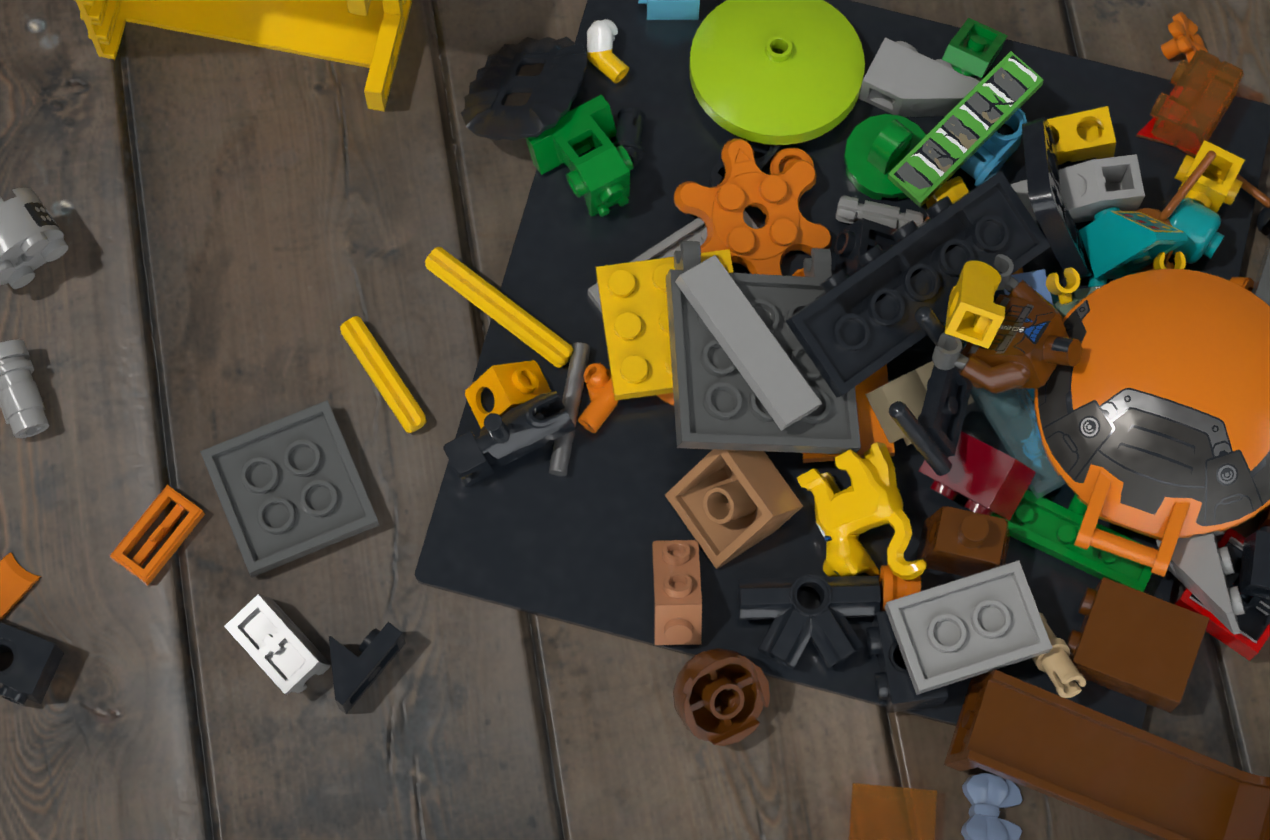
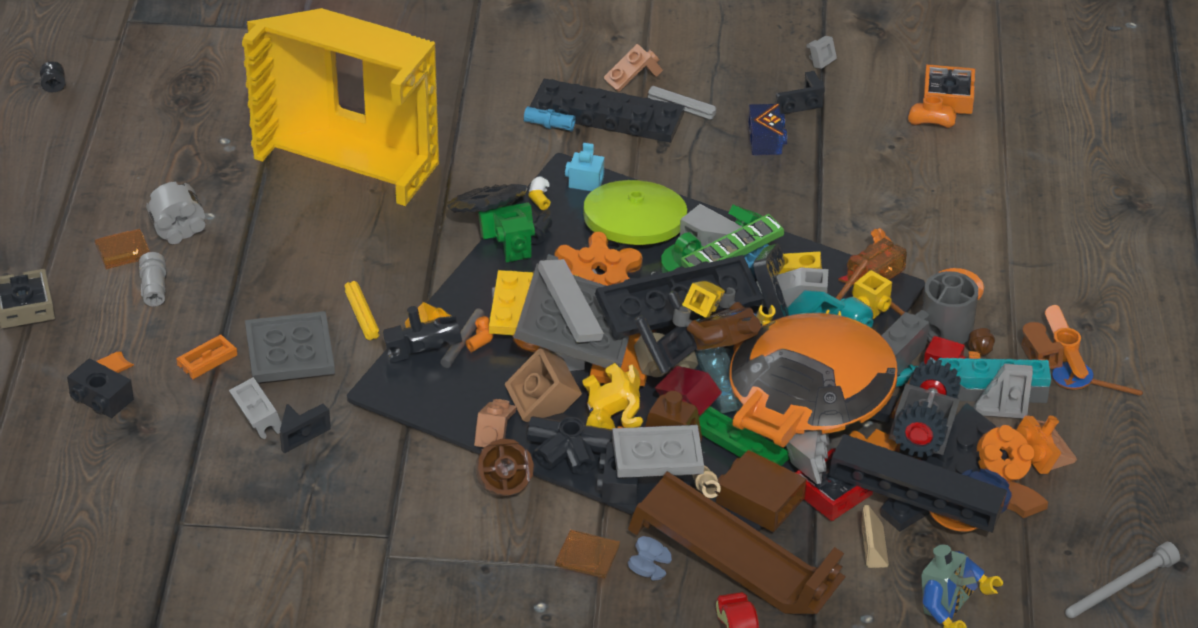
camera: 15 degrees right, 30 degrees down
(499, 307) = (438, 288): yellow axle -> none

